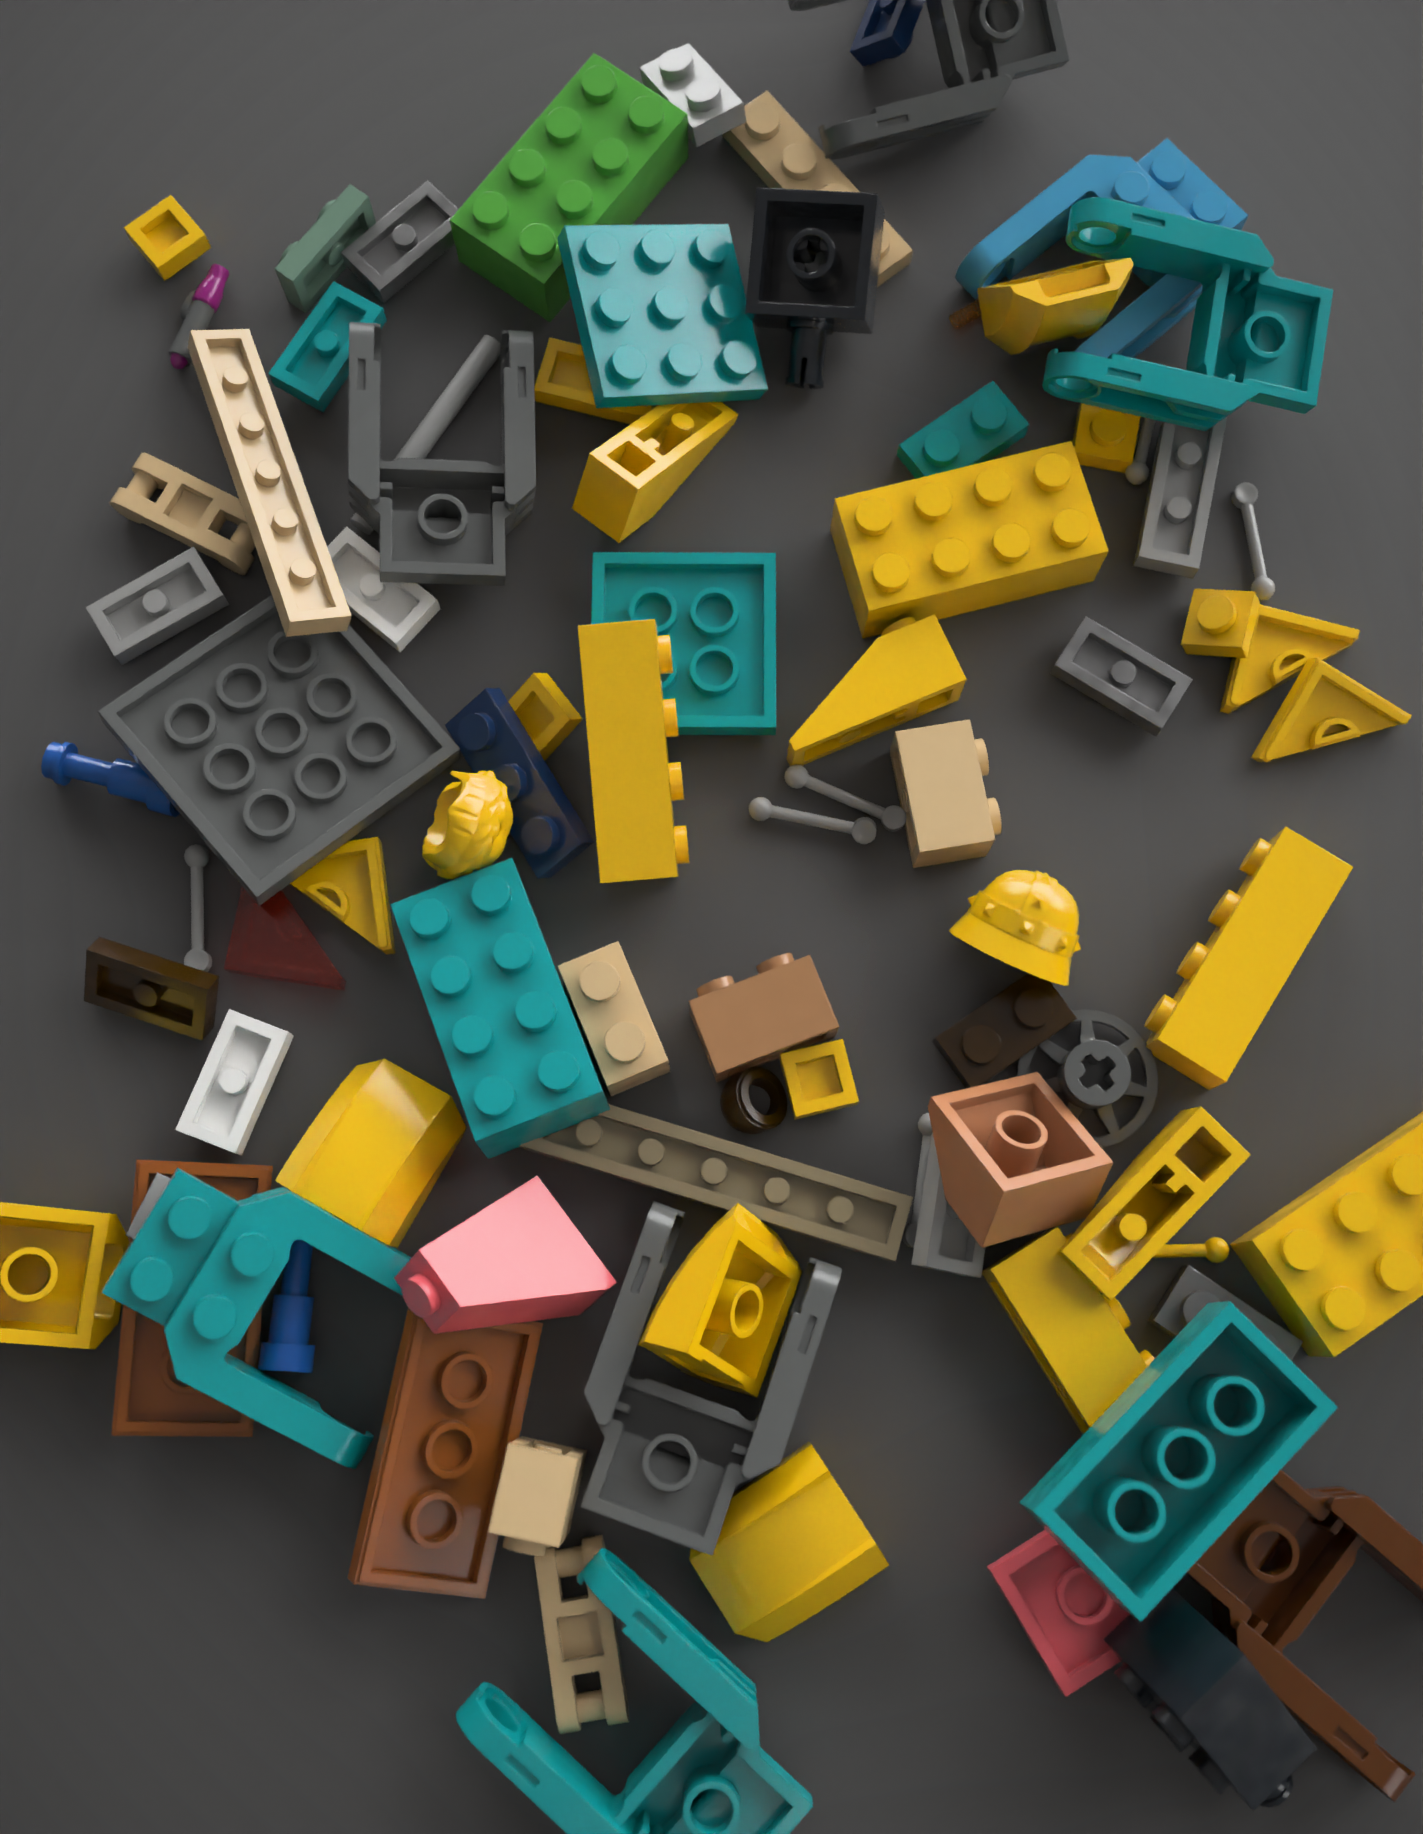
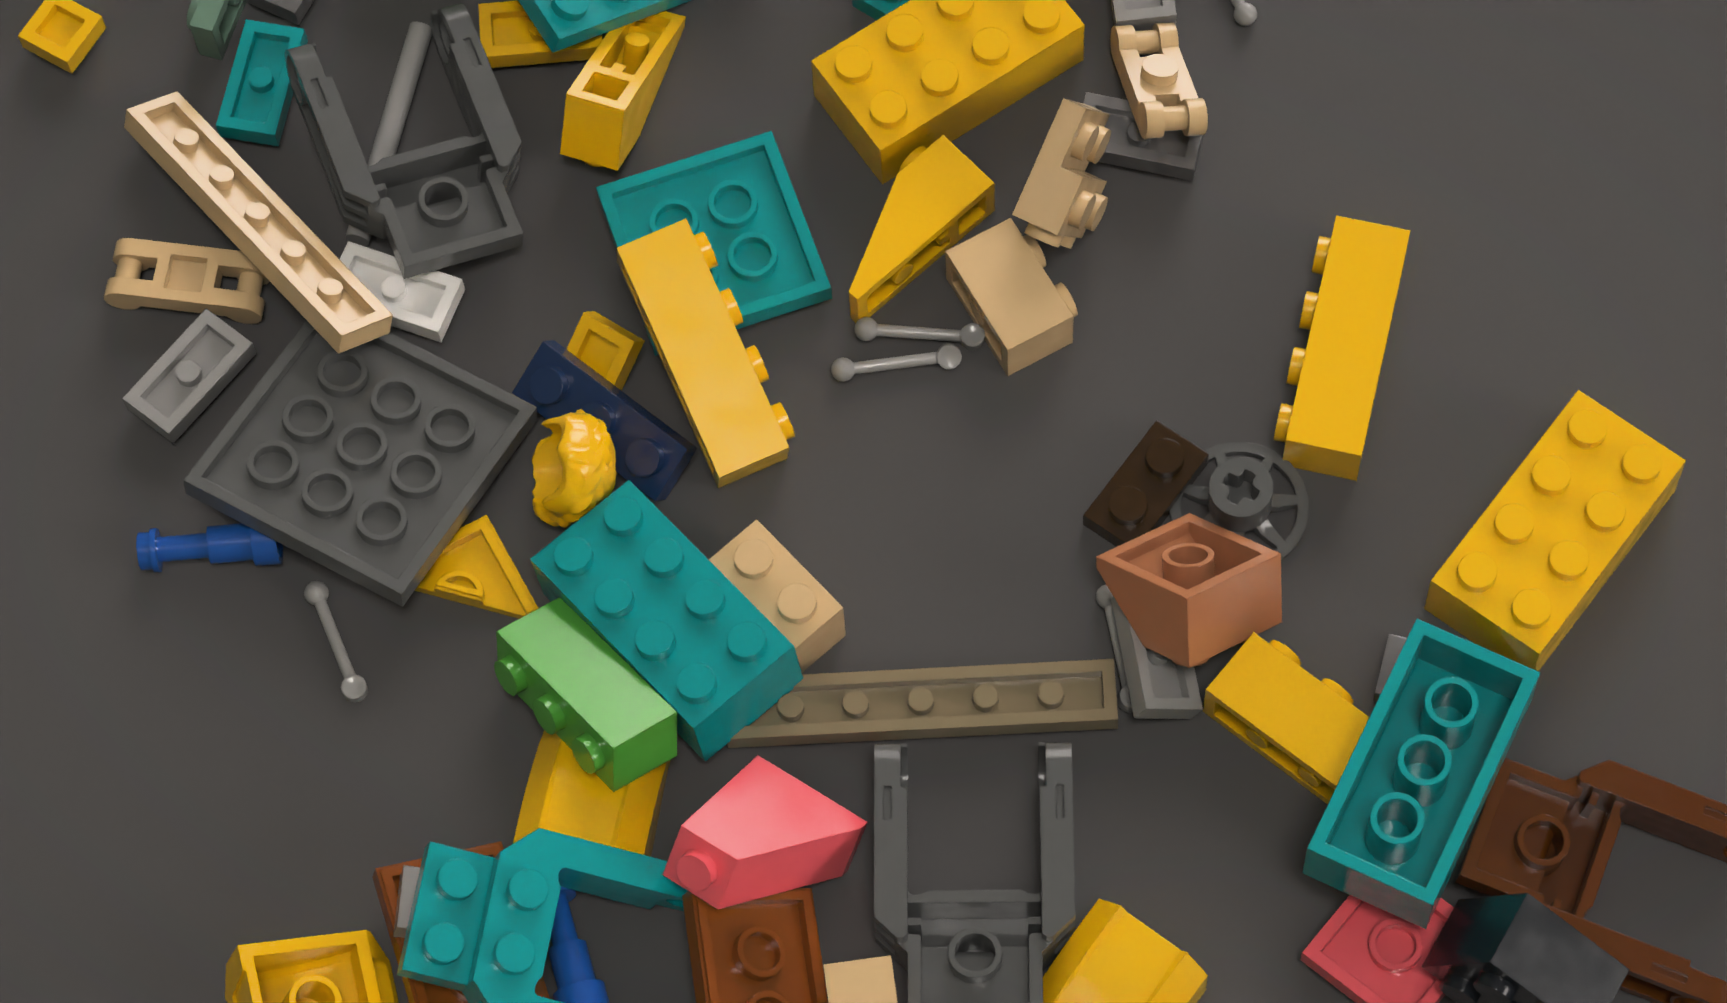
camera: 15 degrees left, 10 degrees down
(150, 988) = (323, 721): dark brown plate -> none
(198, 312) = (117, 93): piece -> none
(235, 1082) = (436, 778): white plate -> none
(278, 945) = (426, 644): clear red tile -> none
(393, 1059) = (586, 694): none -> bright green brick
(726, 1304) = (975, 811): yellow slope -> none
(737, 1105) = (924, 642): dark brown piece -> none
(762, 1015) = (914, 550): medium nougat brick -> none
(818, 1079) = (988, 588): yellow plate -> none
(1024, 923) = (1127, 376): yellow helmet -> none
(1028, 712) = (1059, 194): none -> tan plate
(1153, 1199) = (1332, 578): yellow slope -> none
(1158, 633) = (1158, 84): none -> tan plate
(1213, 1249) = (1315, 649): yellow hinge -> none
(1220, 623) = (1216, 56): yellow plate -> none
(1279, 652) = (1278, 64): yellow tile -> none
(1325, 710) = (1341, 104): yellow tile -> none

